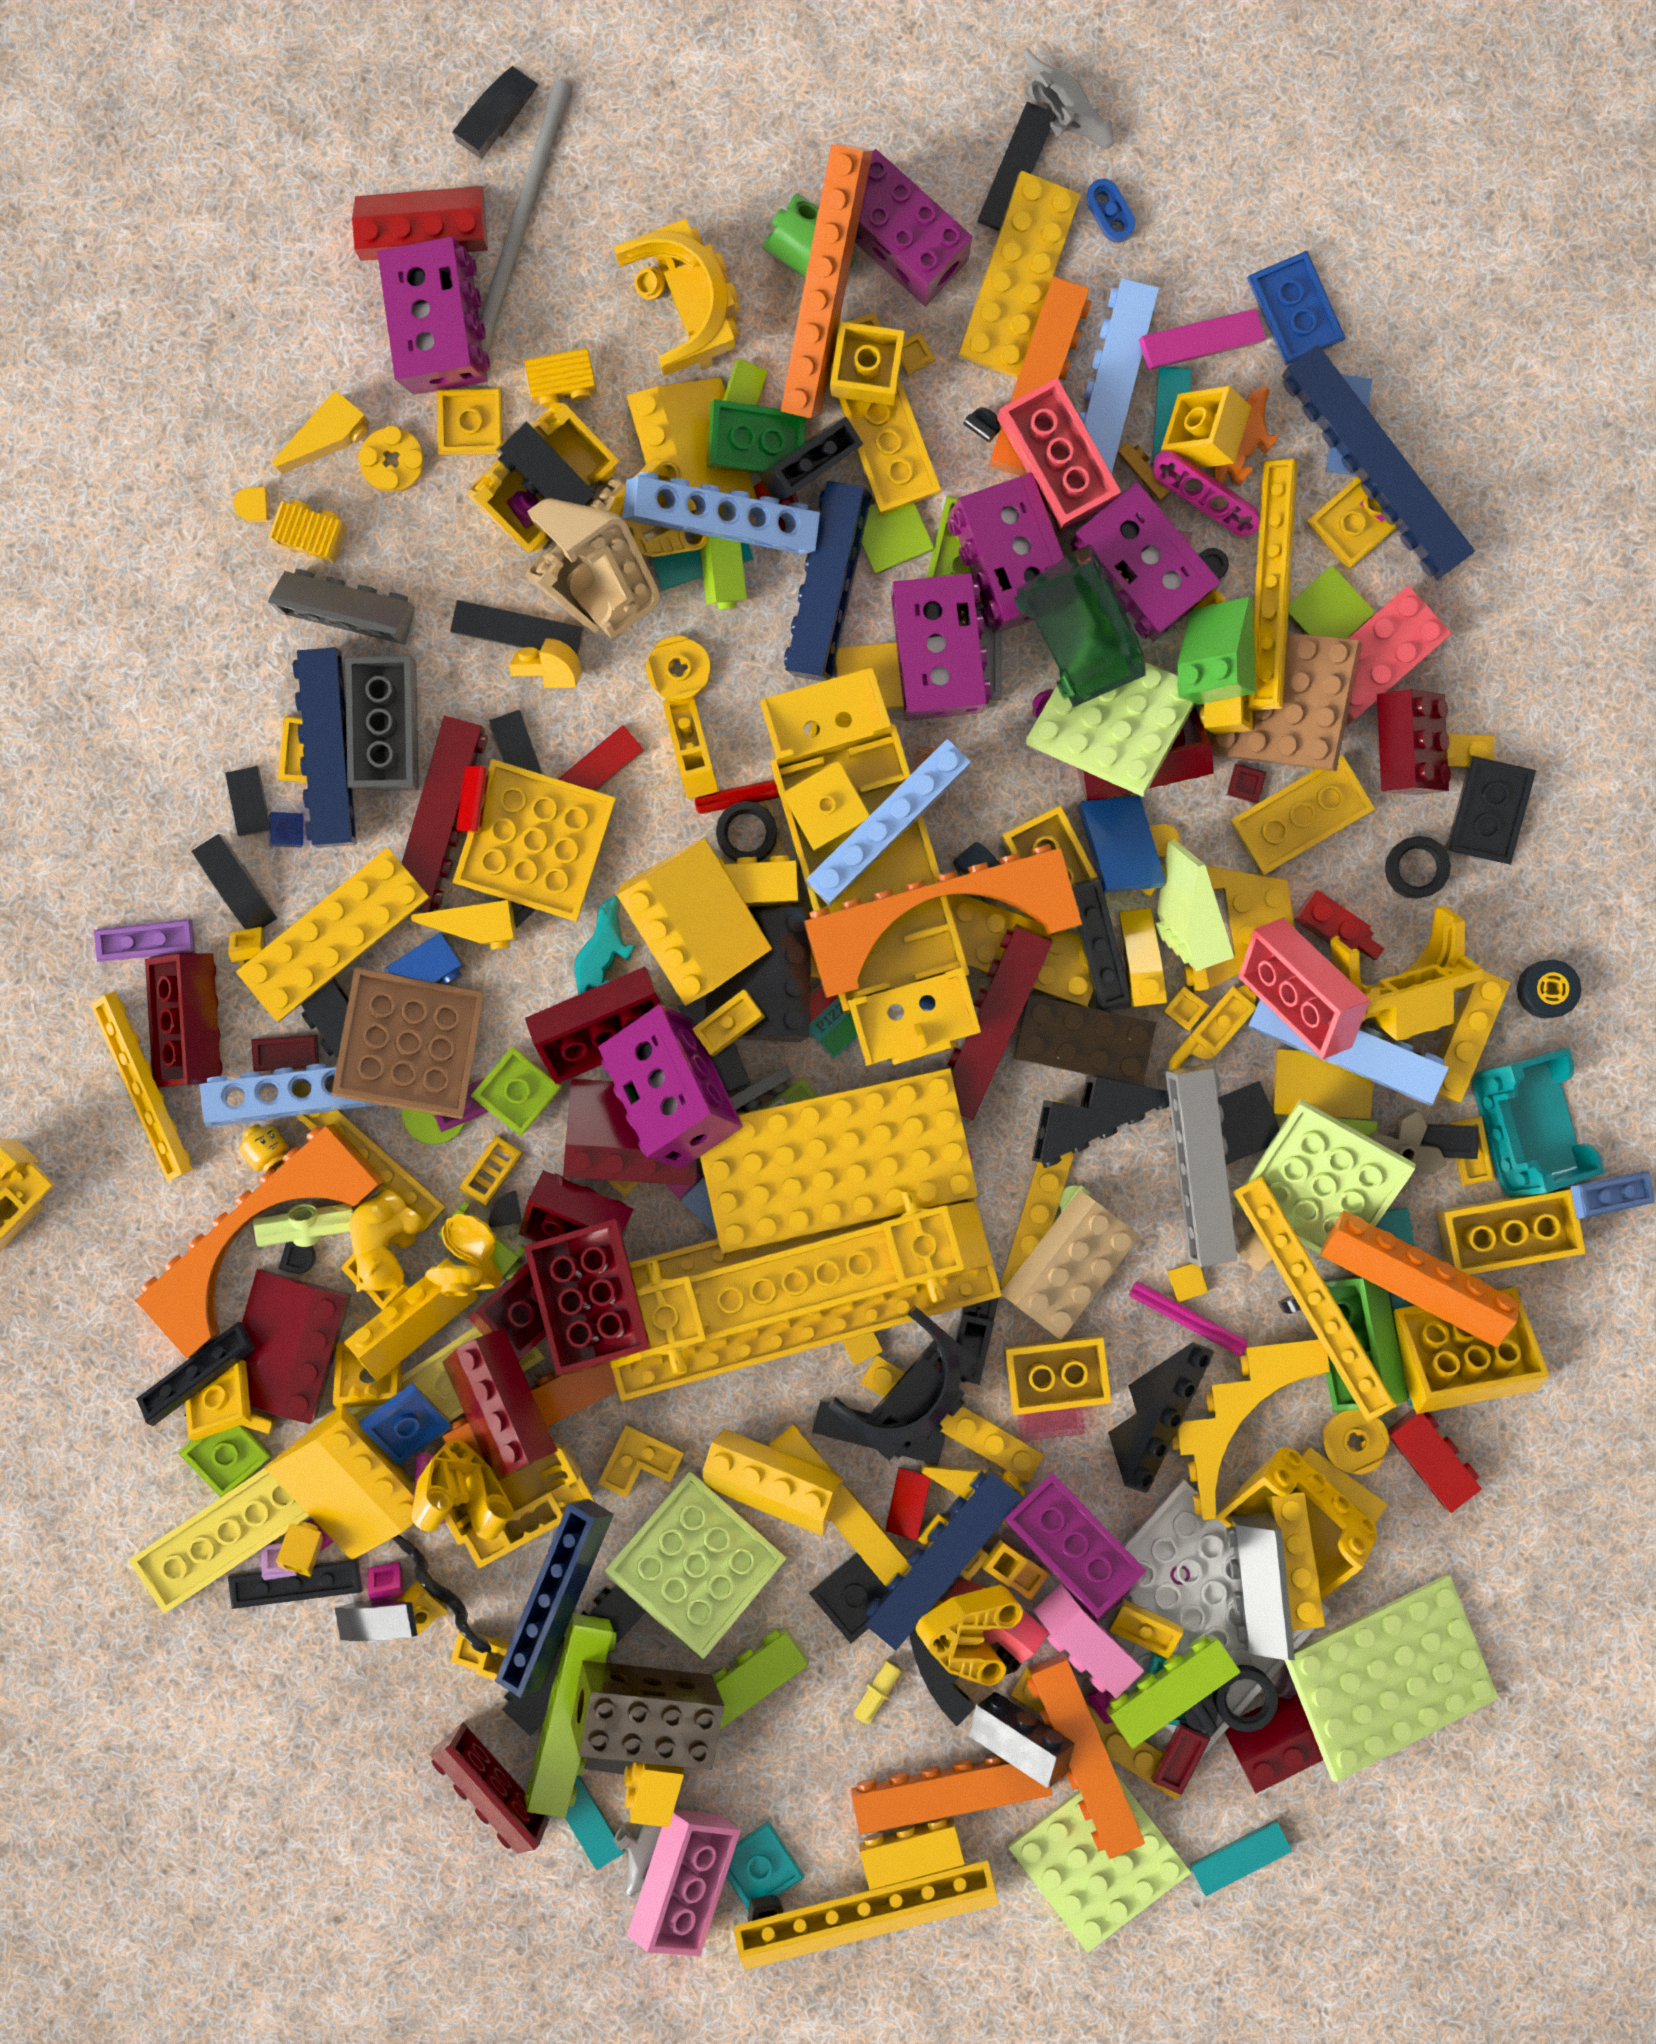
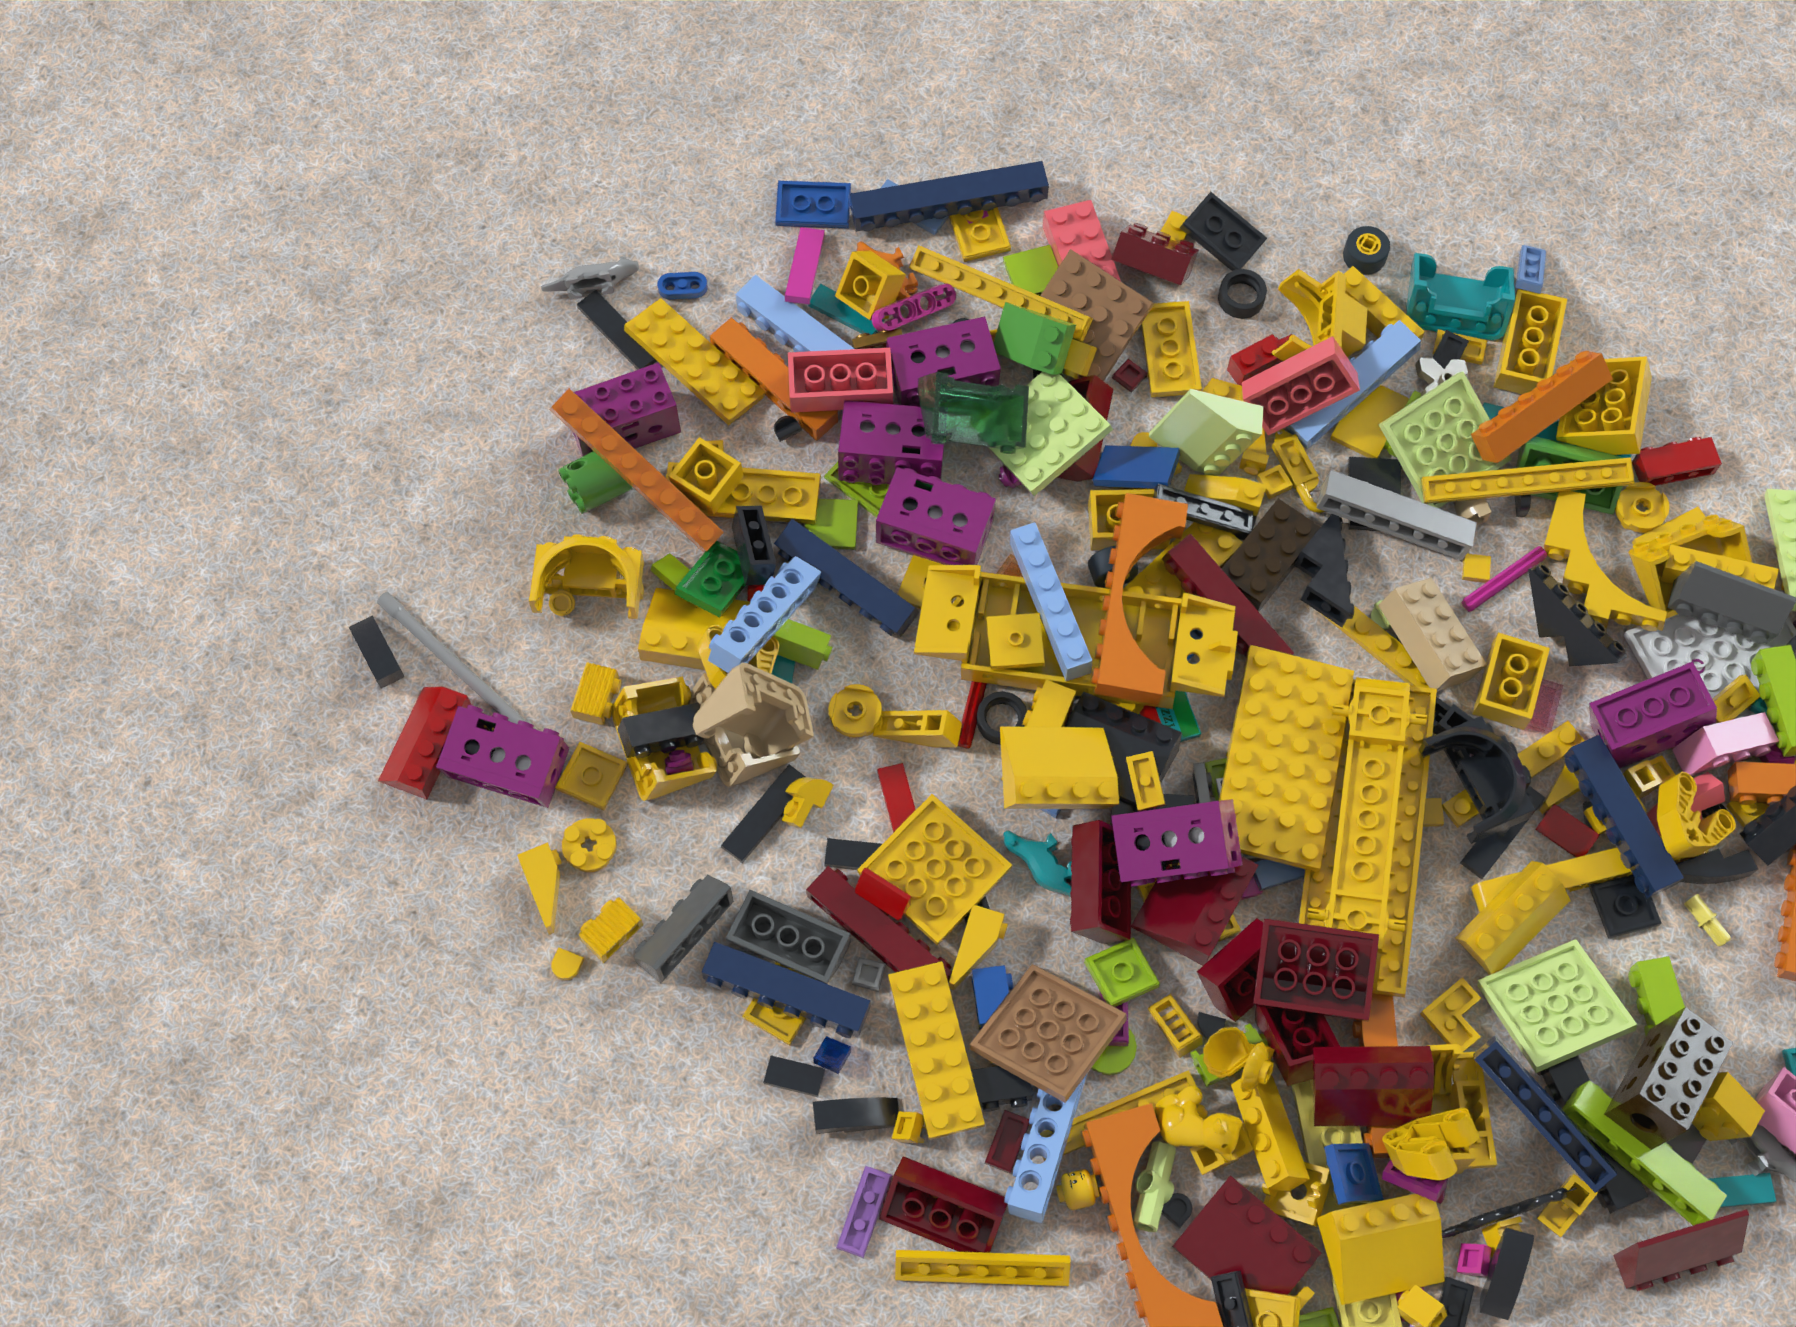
camera: 65 degrees left, 20 degrees down
(392, 825) = (868, 974): none -> light grey tile

